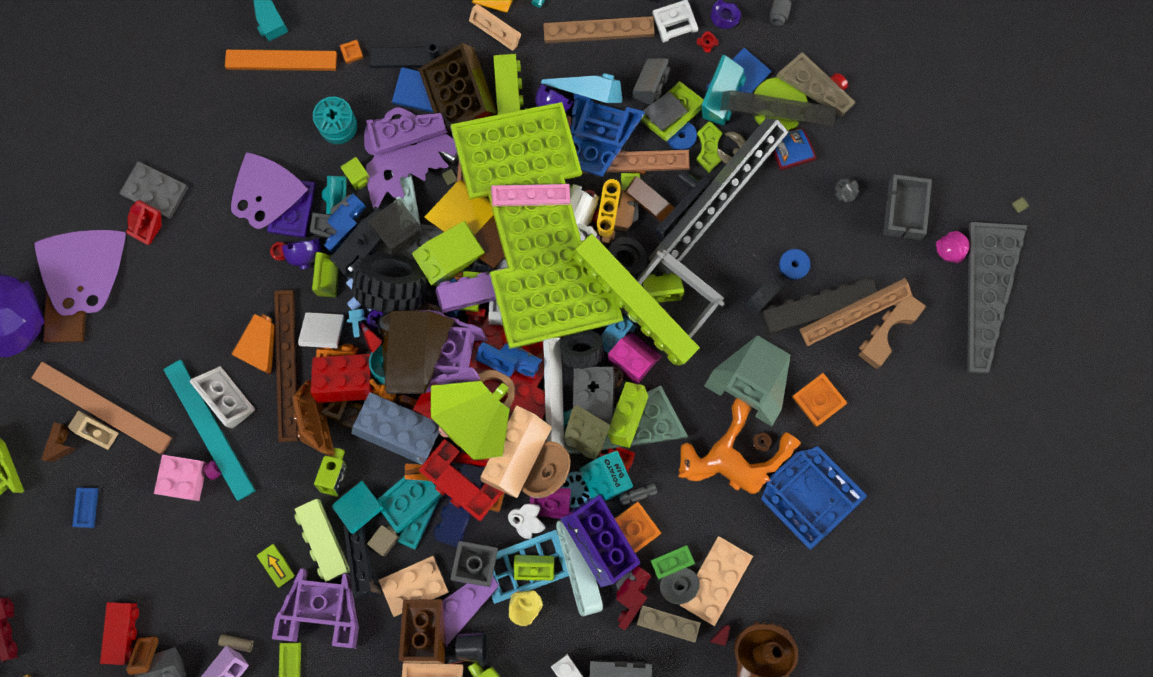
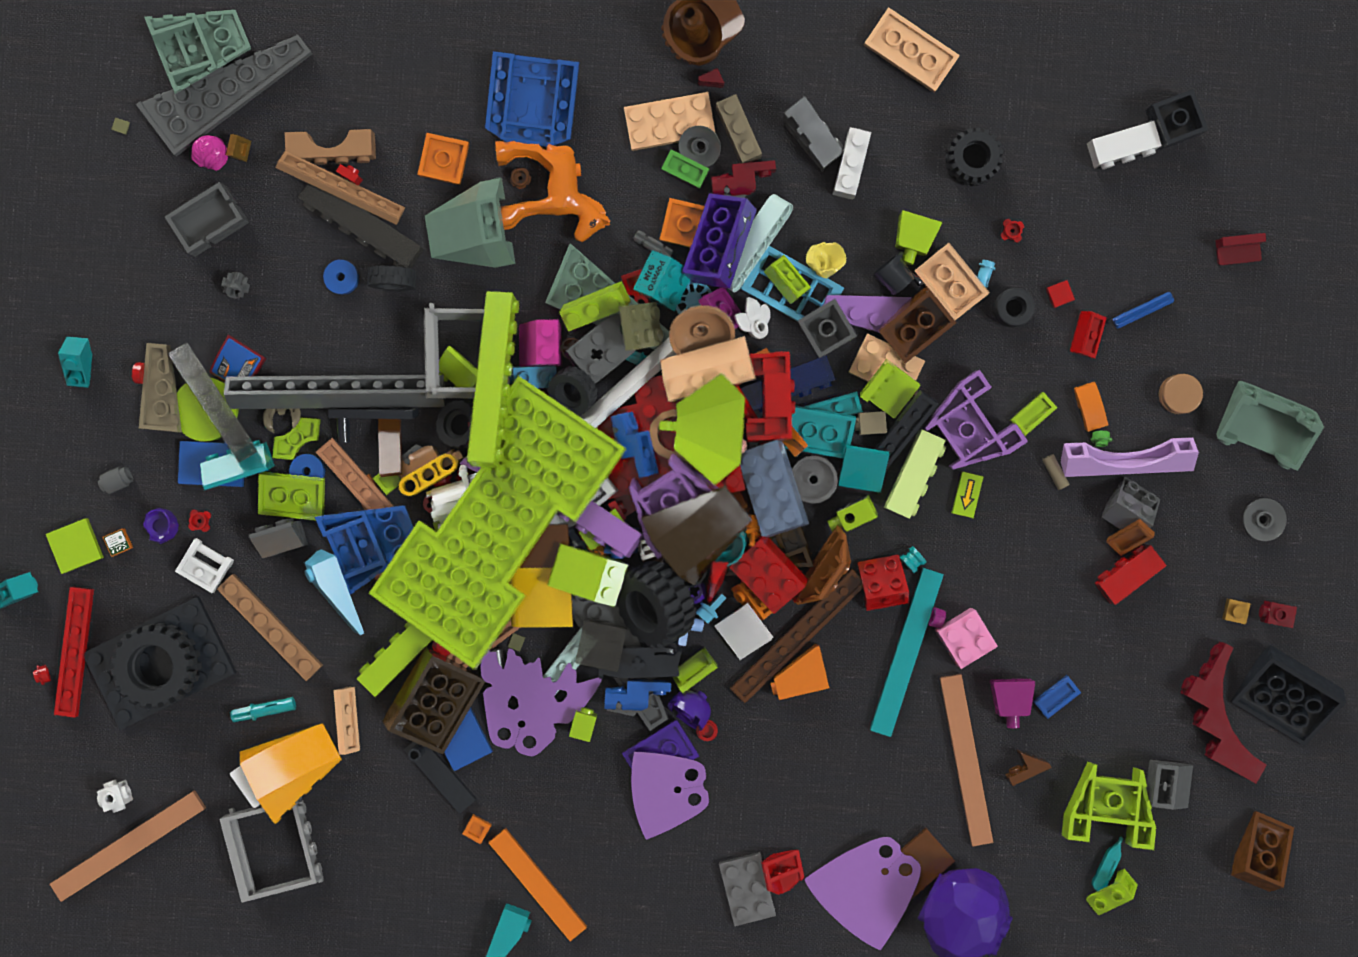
camera: 130 degrees left, 10 degrees up
(92, 430) = (990, 749): tan slope -> none
(111, 475) = (1012, 699): none -> magenta torso
(223, 397) = (869, 664): white slope -> none
(265, 487) = (913, 559): none -> teal wheel
(269, 454) = (883, 582): none -> red bracket
(334, 192) = (616, 727): teal tile -> none
(339, 129) = (551, 772): teal wheel -> none
(375, 476) = (826, 476): none -> flat silver wheel
(395, 572) = (890, 388): none -> lime bracket
(397, 133) = (513, 717): medium lavender wing -> none
(530, 195) = (477, 545): bright pink tile -> none
(547, 96) = (371, 611): dark purple cylinder -> none
(665, 111) = (297, 501): flat silver piece -> none
(861, 327) = (350, 174): none -> red plate
(880, 48) = (76, 361): none -> teal slope
(940, 268) = (238, 148): none -> pearl gold plate
(1036, 298) = (197, 44): none -> sand green wedge

